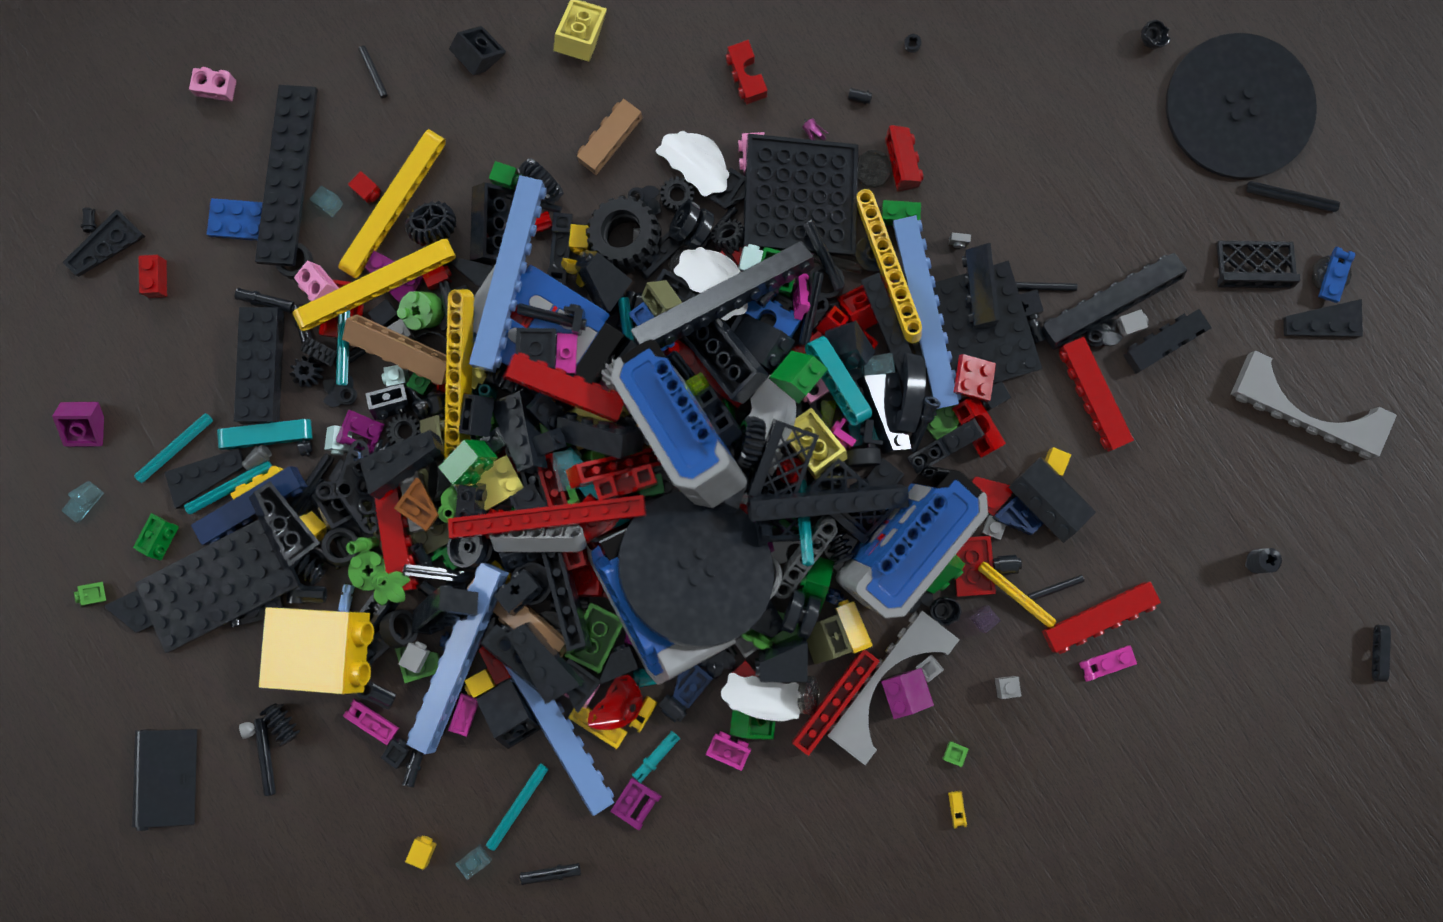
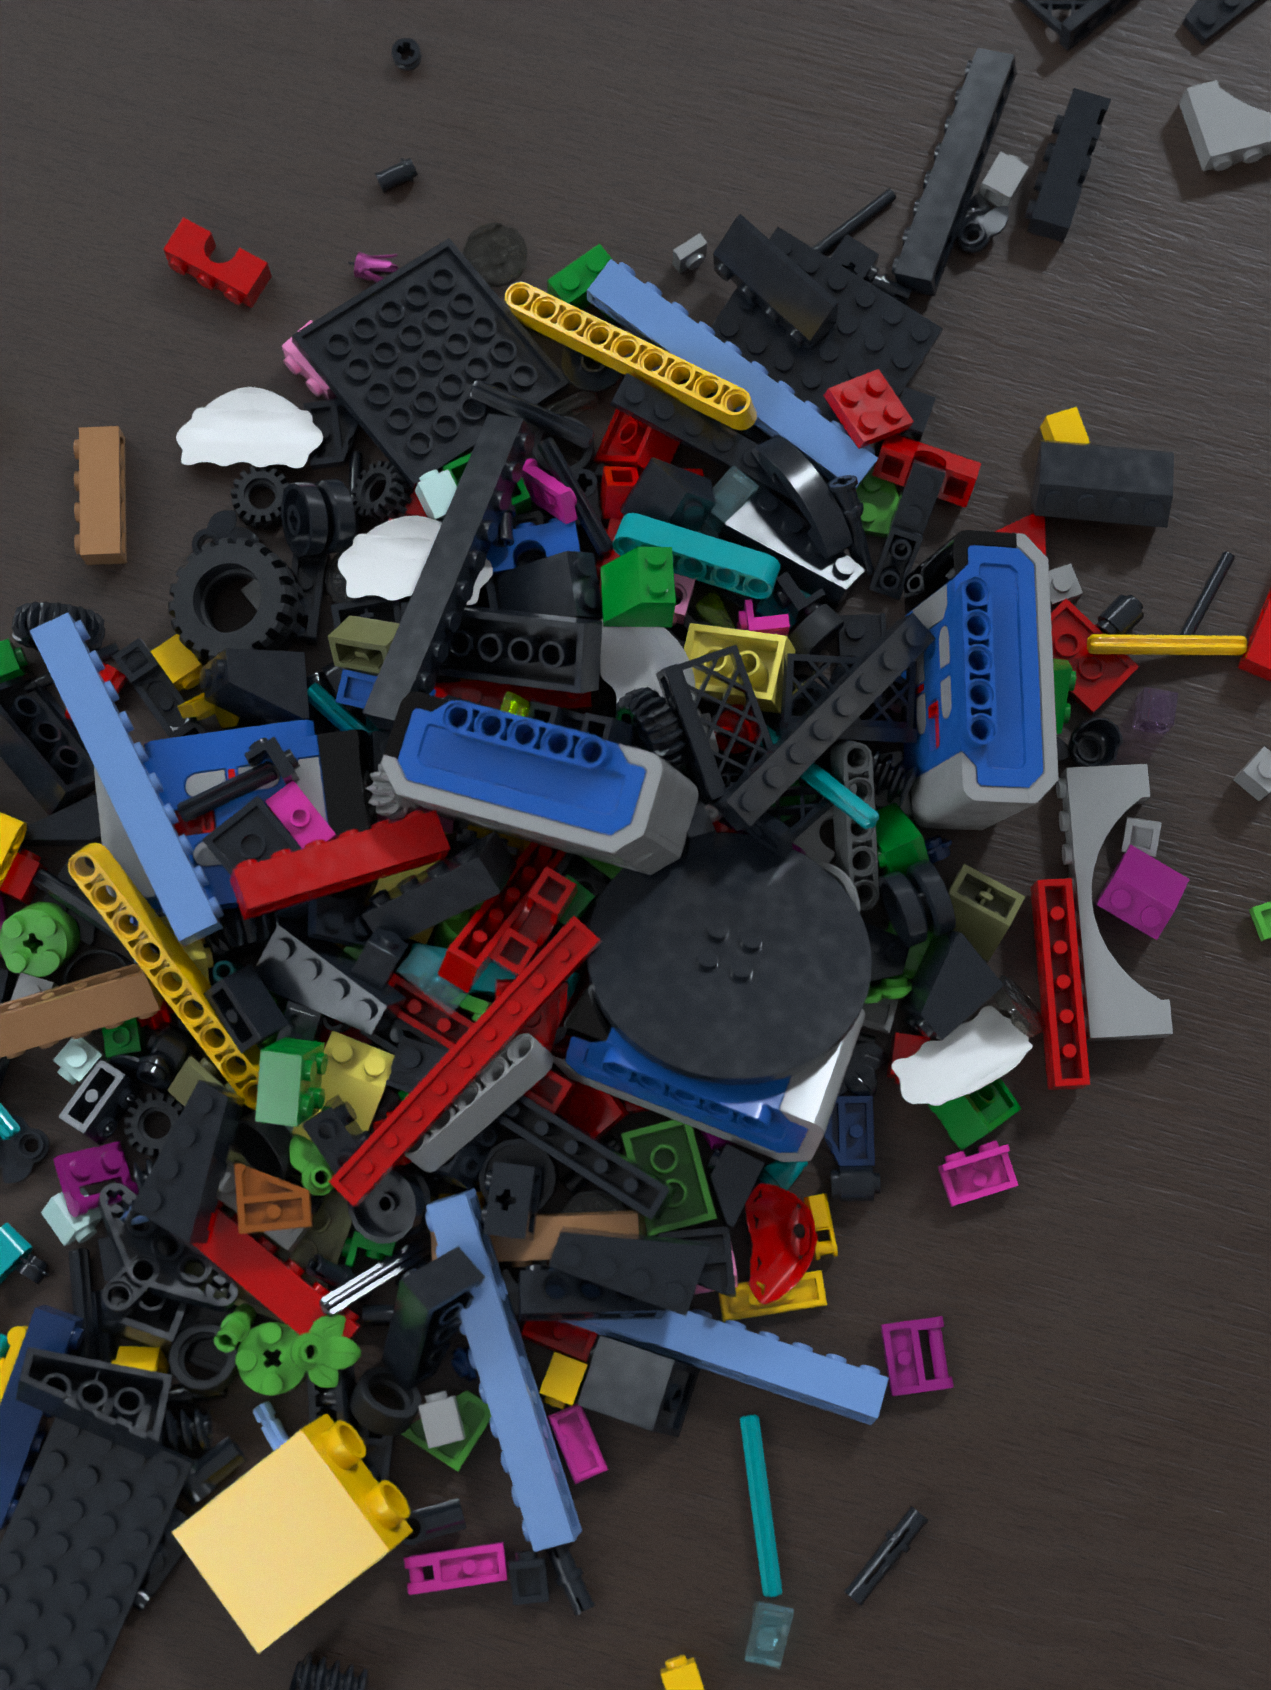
camera: 45 degrees left, 5 degrees down
(656, 756) = (888, 1268): teal pin -> none
(853, 626) = (997, 862): yellow slope -> none
(903, 158) = (525, 208): red slope -> none
(1018, 516) = (1080, 542): dark blue wing -> none
(1095, 394) = (1037, 307): red brick -> none

